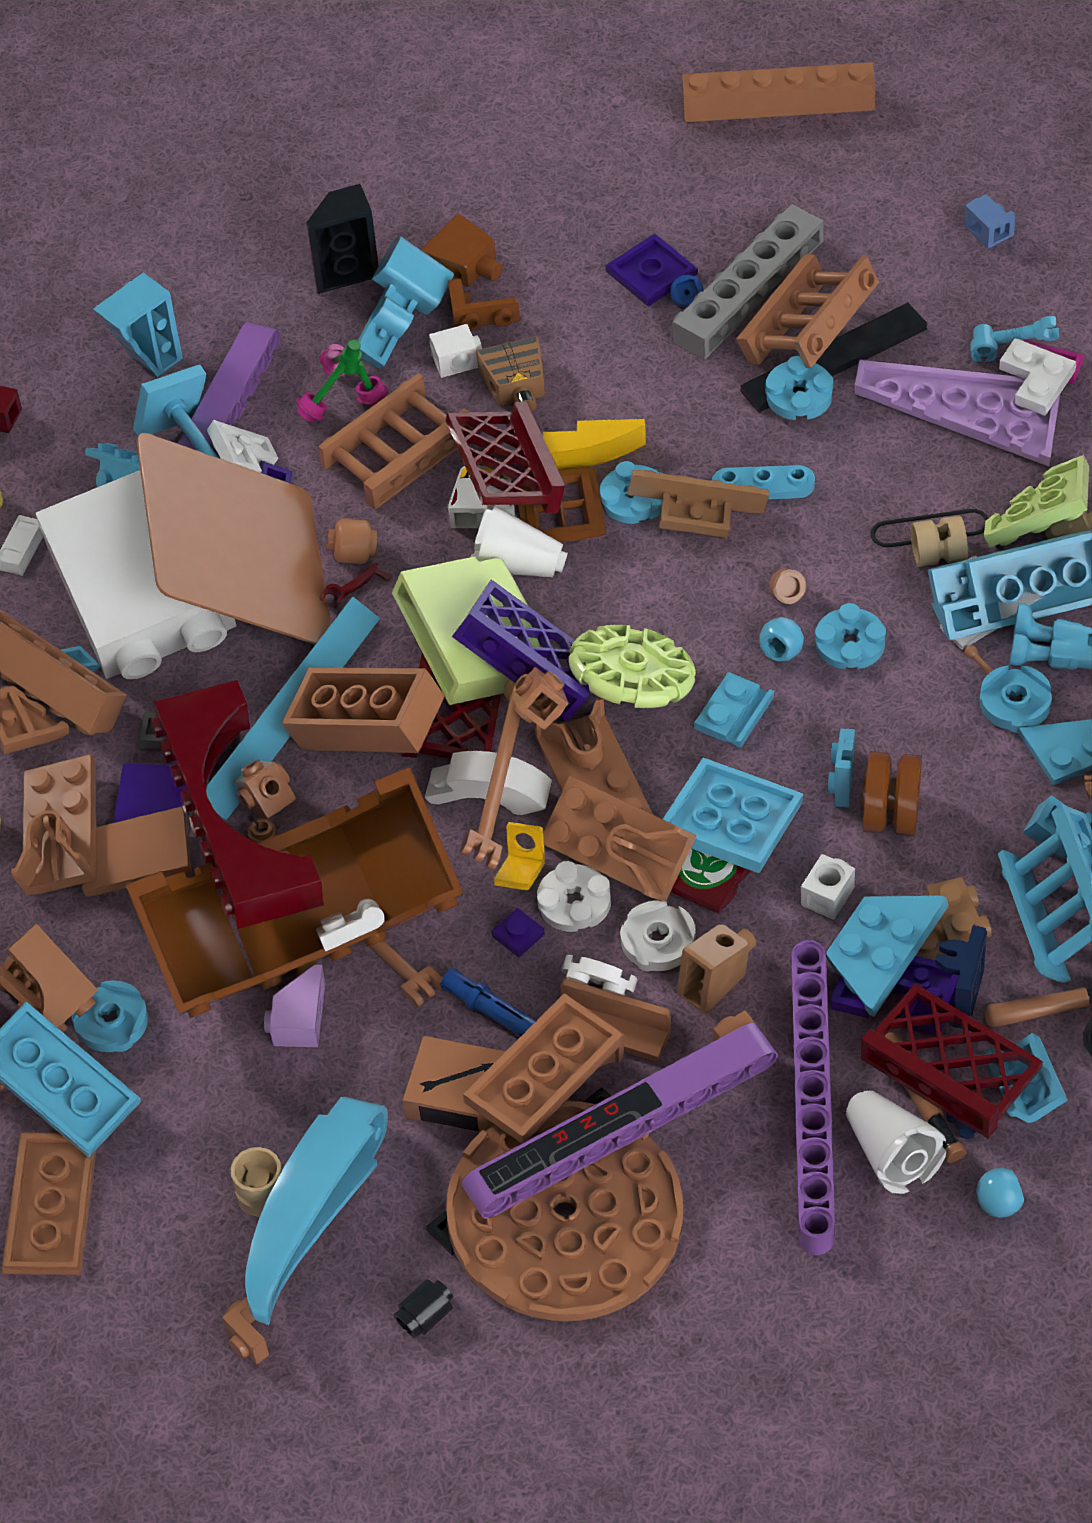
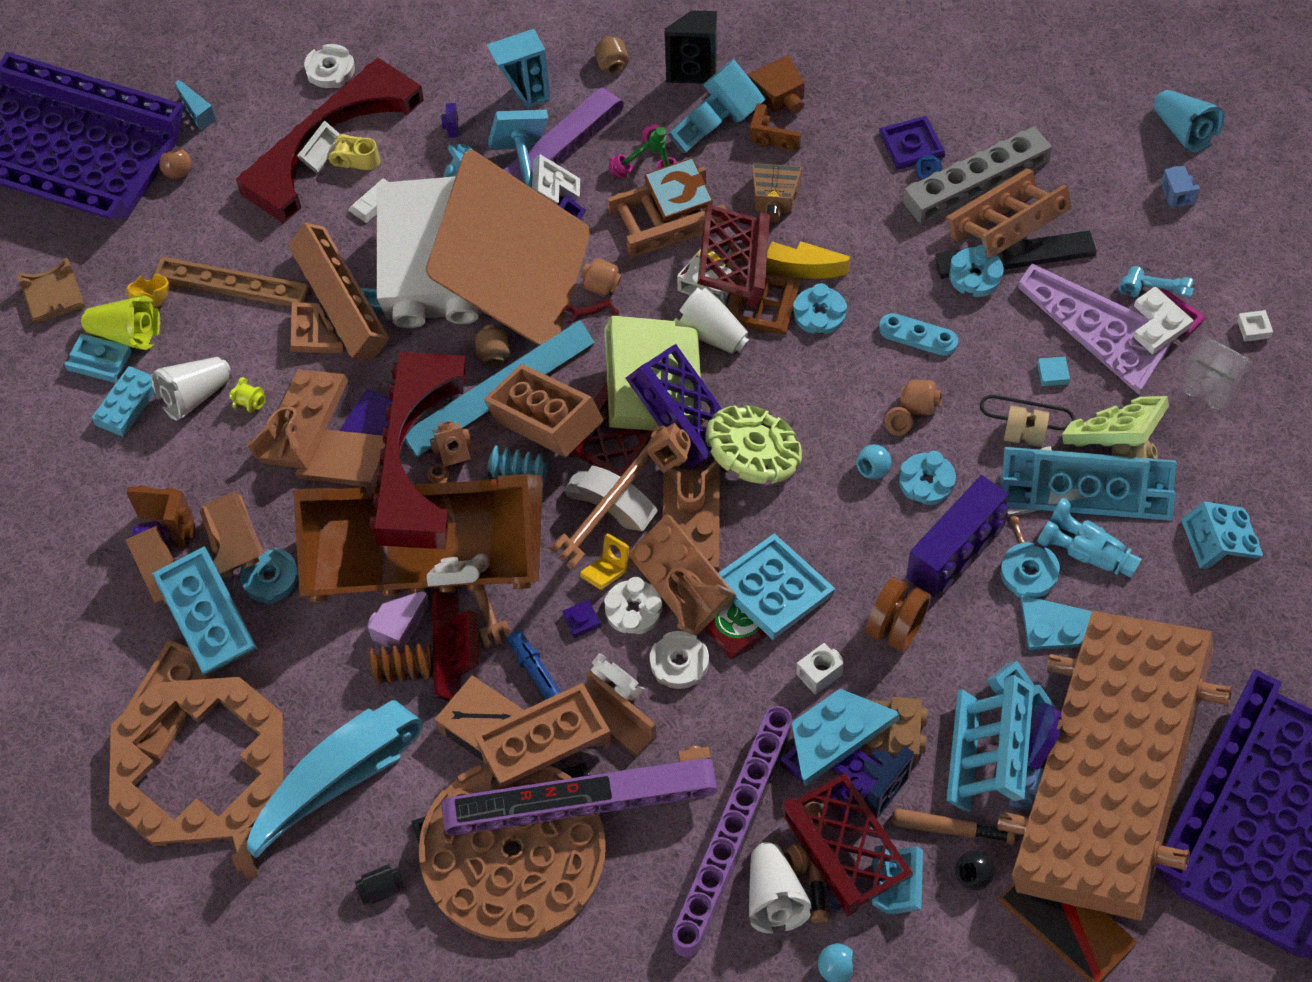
camera: 20 degrees right, 5 degrees up
(72, 420) = (450, 120): none -> dark purple plate
(94, 1185) = (197, 699): none -> nougat plate
(236, 281) = (611, 55): none -> medium nougat head
(254, 1177) = (304, 735): tan wheel -> none
(257, 662) = (492, 345): none -> medium nougat head
(327, 1055) = (401, 664): none -> dark orange piece
(347, 790) = (506, 465): none -> medium azure piece
(382, 1012) = (453, 644): none -> dark red bracket
(401, 408) = (678, 189): none -> tile
(454, 350) = (739, 157): white brick -> none
(696, 503) = (858, 334): medium nougat bracket -> none
(713, 966) = (706, 699): medium nougat torso -> none
(734, 710) = (816, 503): medium azure plate -> none
(778, 92) = (1065, 36): nougat brick -> none
(801, 549) = (921, 397): none -> nougat head
(842, 756) = (873, 578): medium azure wing -> none
(902, 1096) = (797, 858): none -> nougat plate
(921, 683) = (958, 536): none -> dark purple brick
(939, 472) = (1053, 371): none -> medium azure tile
(965, 140) = (1189, 119): none -> medium azure cone

